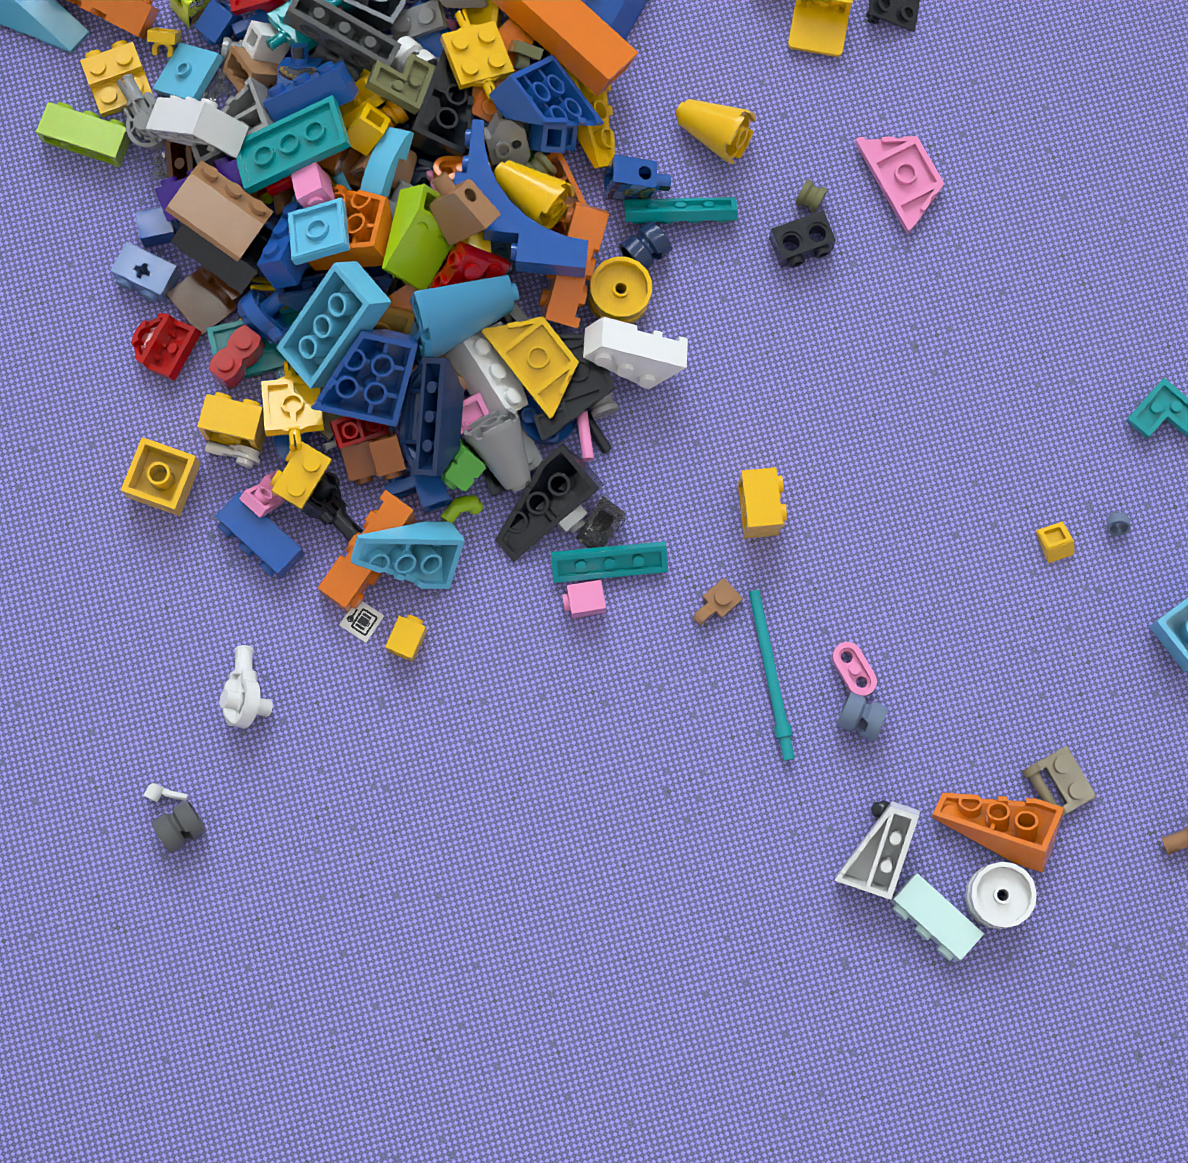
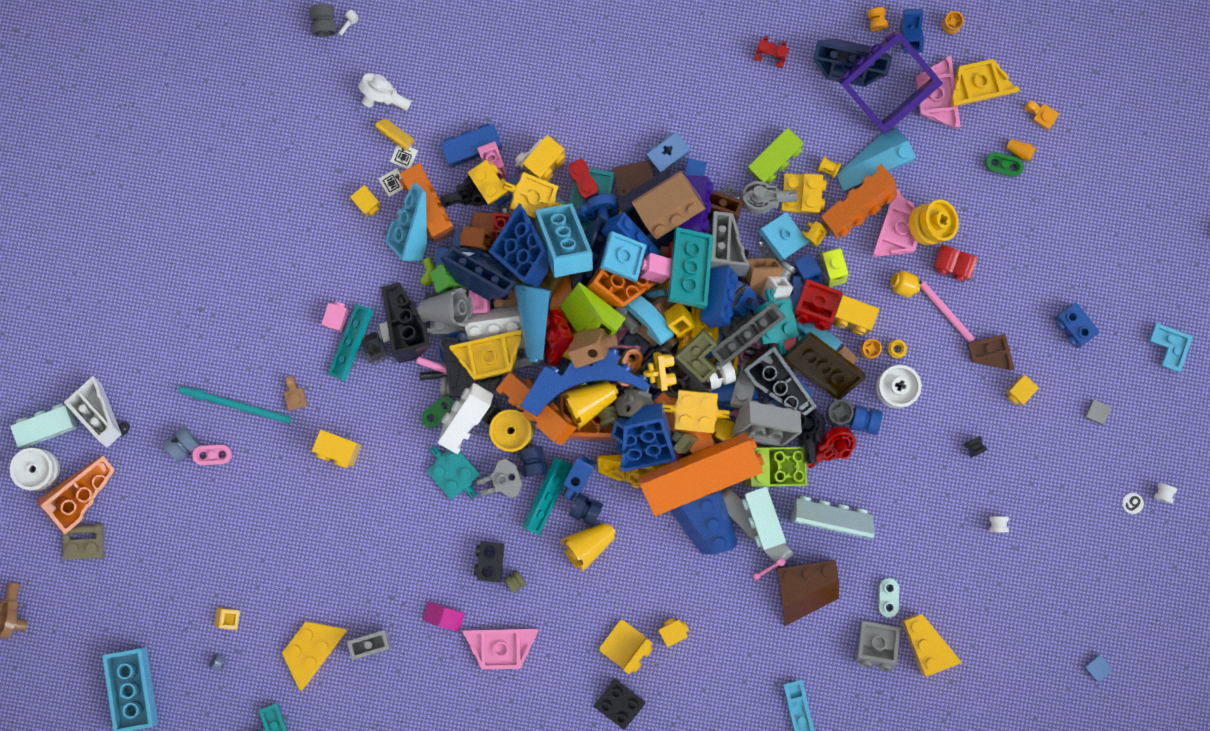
camera: 120 degrees right, 5 degrees up
(65, 61) = (829, 167): none -> yellow bush
(160, 476) = (534, 103): yellow brick -> none
(164, 344) = (617, 143): red slope -> none
(195, 123) = (733, 218): white wedge -> none
(293, 648) = (394, 134): none -> yellow slope
(317, 623) = (404, 158): none -> white sticker
(449, 118) = (663, 379): none -> yellow hips
(641, 405) = (438, 412): none -> green plate
(672, 147) = (586, 509): none -> dark blue wheel
(691, 273) = (501, 480): none -> light grey hinge
(713, 344) = (453, 473): none -> teal plate
(903, 267) = (443, 616): none -> dark pink slope
(990, 335) = (369, 644): none -> light grey brick
(1035, 412) = (310, 650): none -> yellow wing

